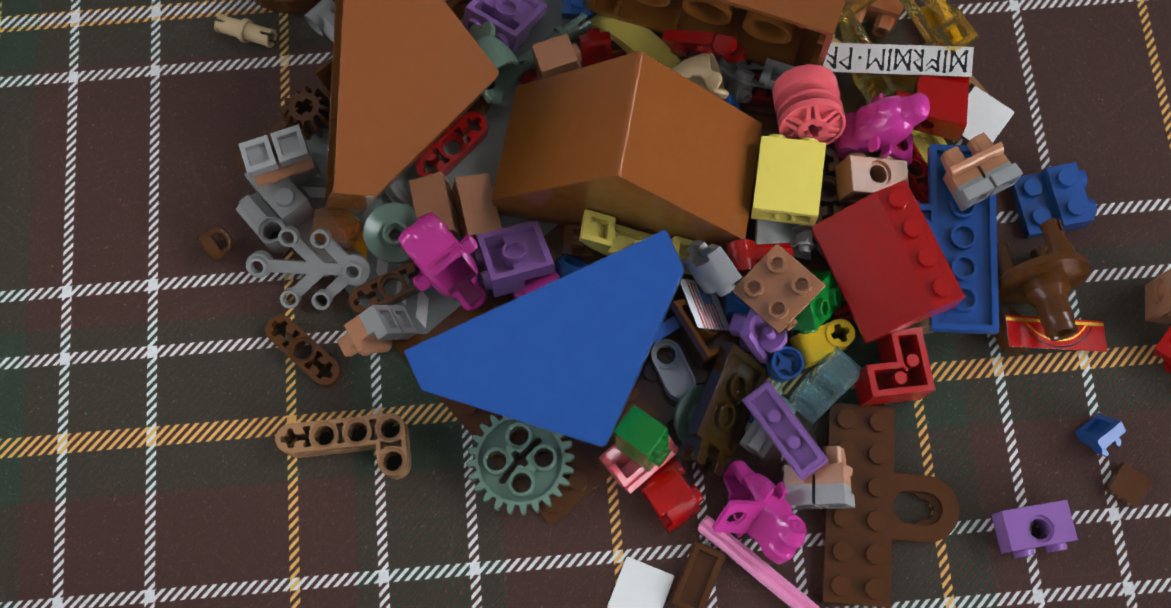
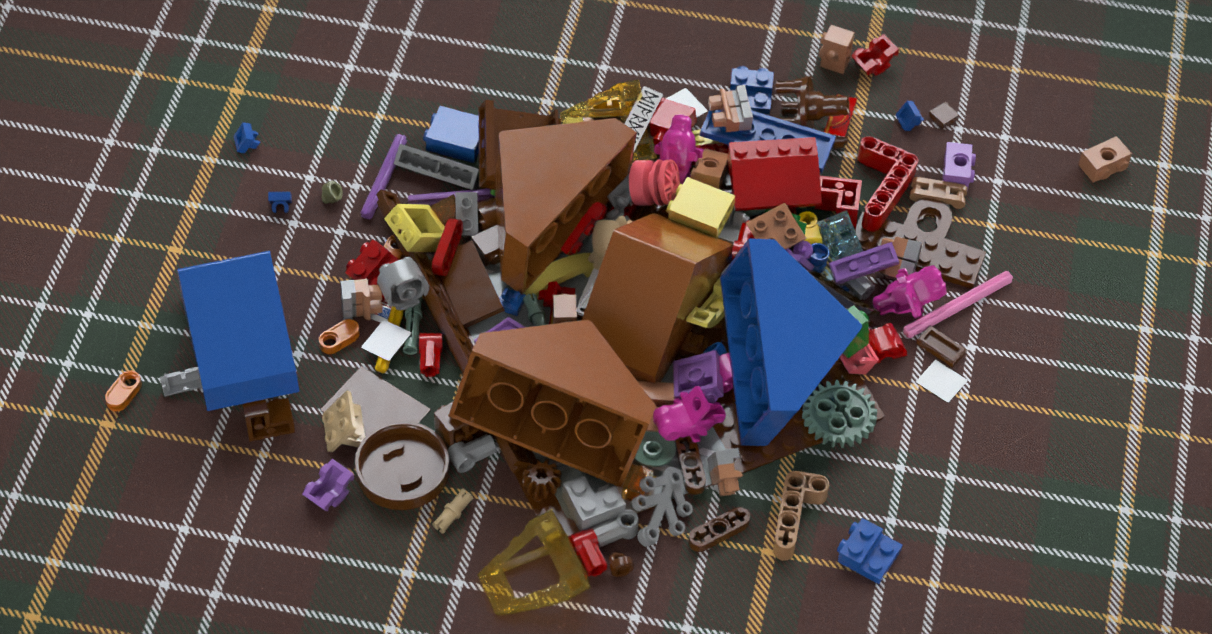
camera: 75 degrees left, 20 degrees down
(160, 190) = (557, 544): none -> clear yellow windscreen
(224, 199) = (588, 549): none -> red piece
(275, 162) = (591, 476): light grey hips -> none
(318, 556) = (868, 551): none -> blue plate
(955, 435) = (900, 171): none -> red beam
(976, 511) = (939, 191): none -> medium nougat plate

